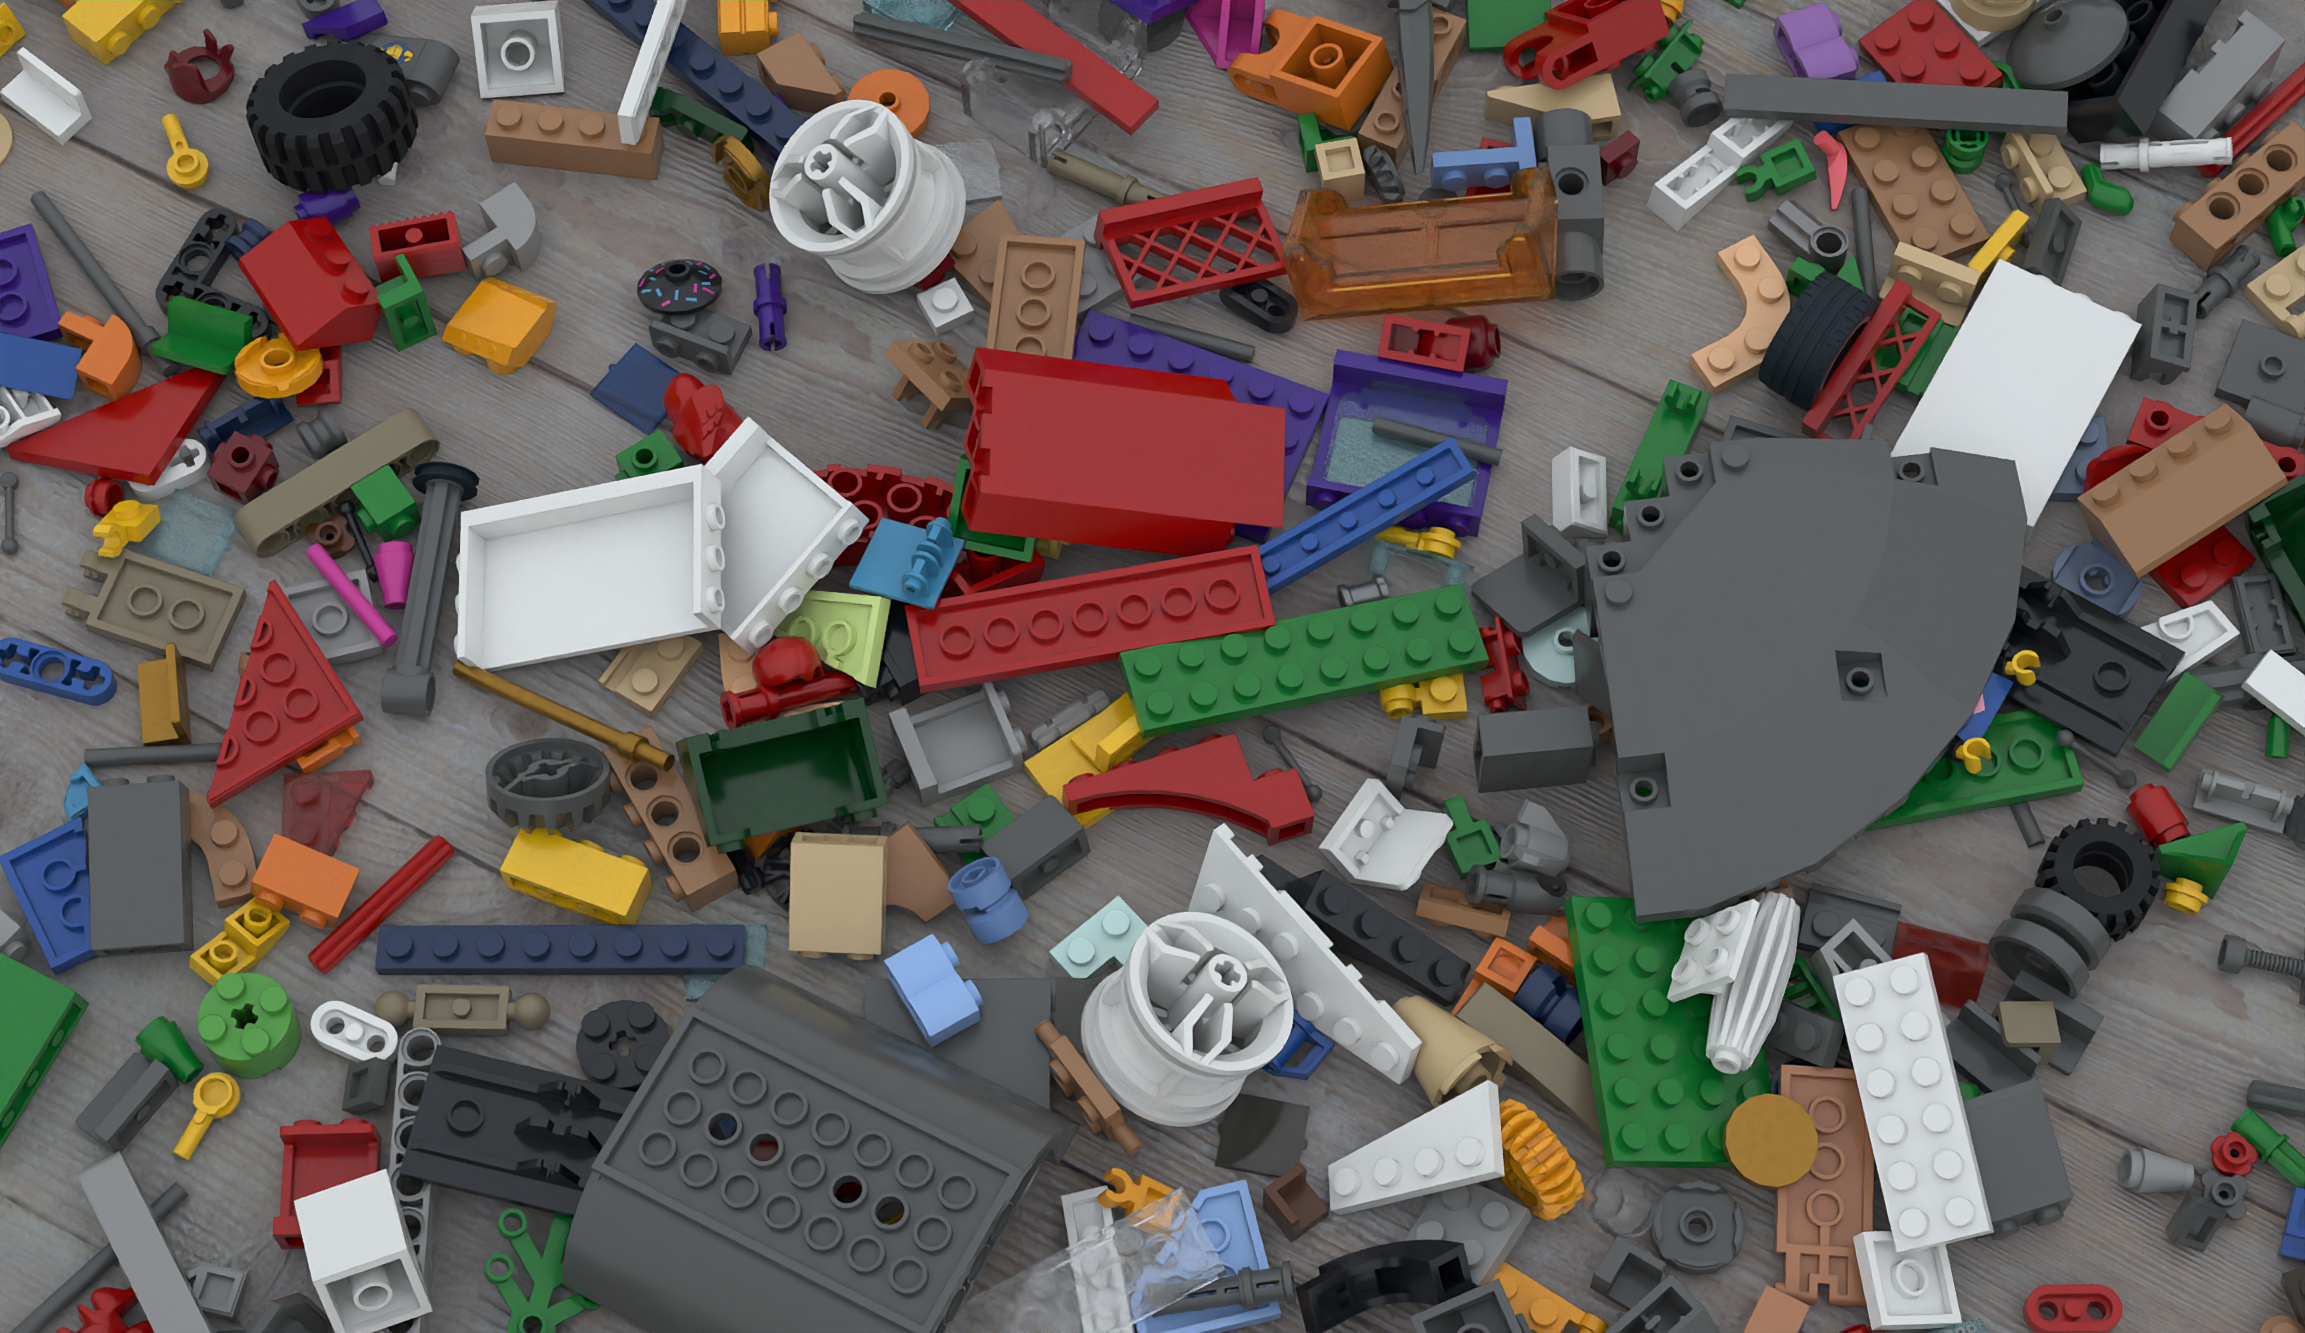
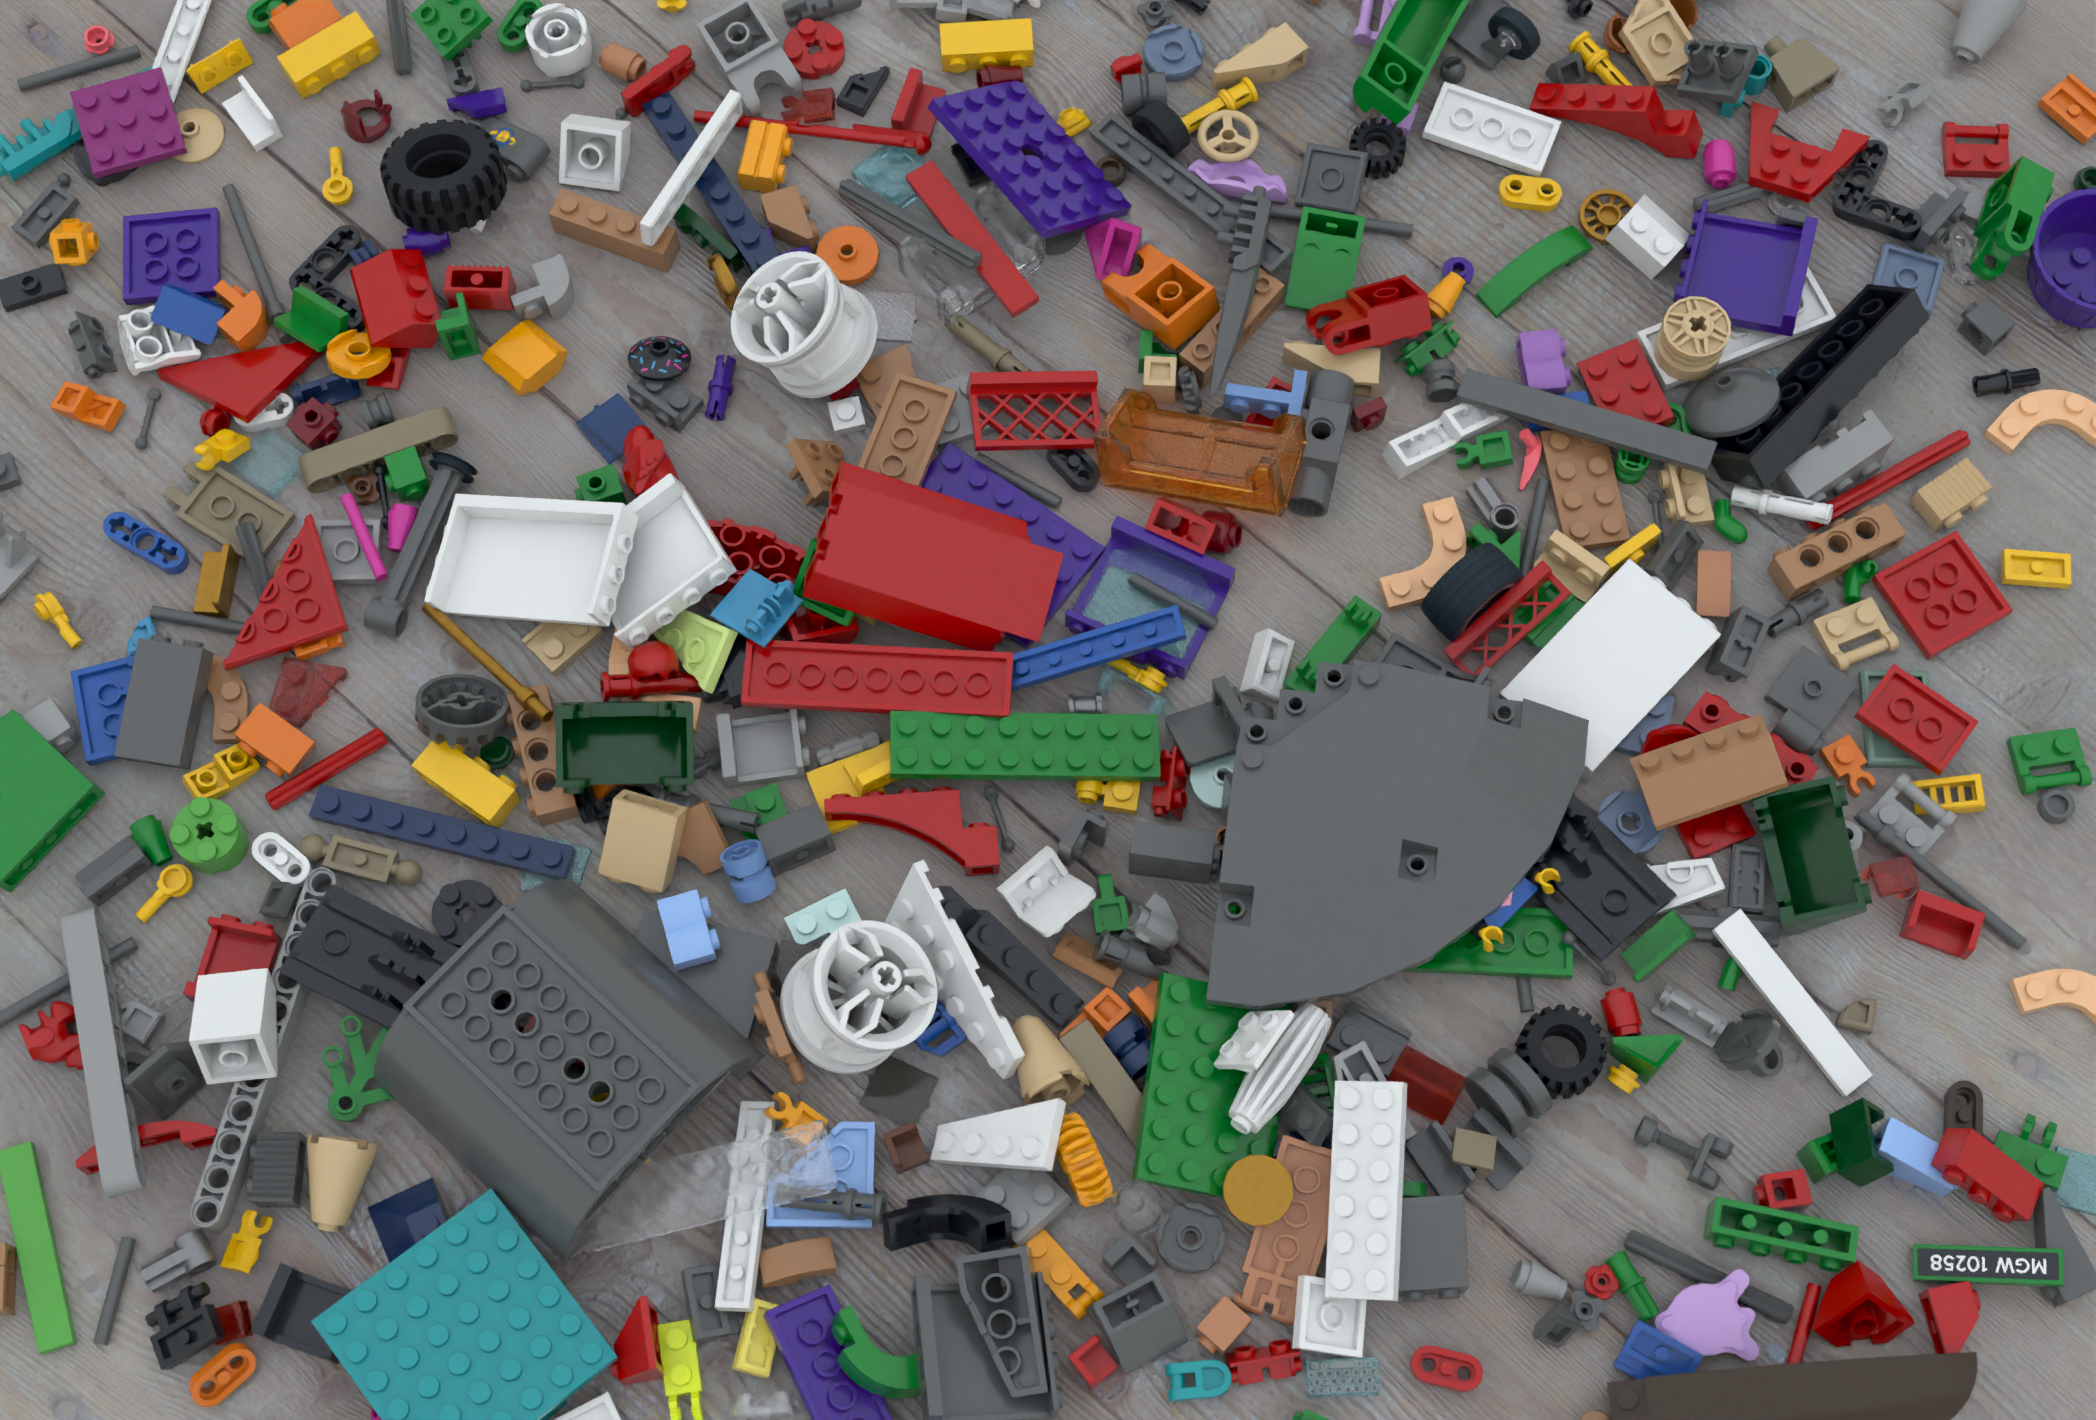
camera: 15 degrees right, 5 degrees up
(209, 655) = (253, 556): none -> dark grey axle
(607, 830) = (497, 753): none -> dark green plate
(2110, 267) = (1713, 583): none -> nougat slope

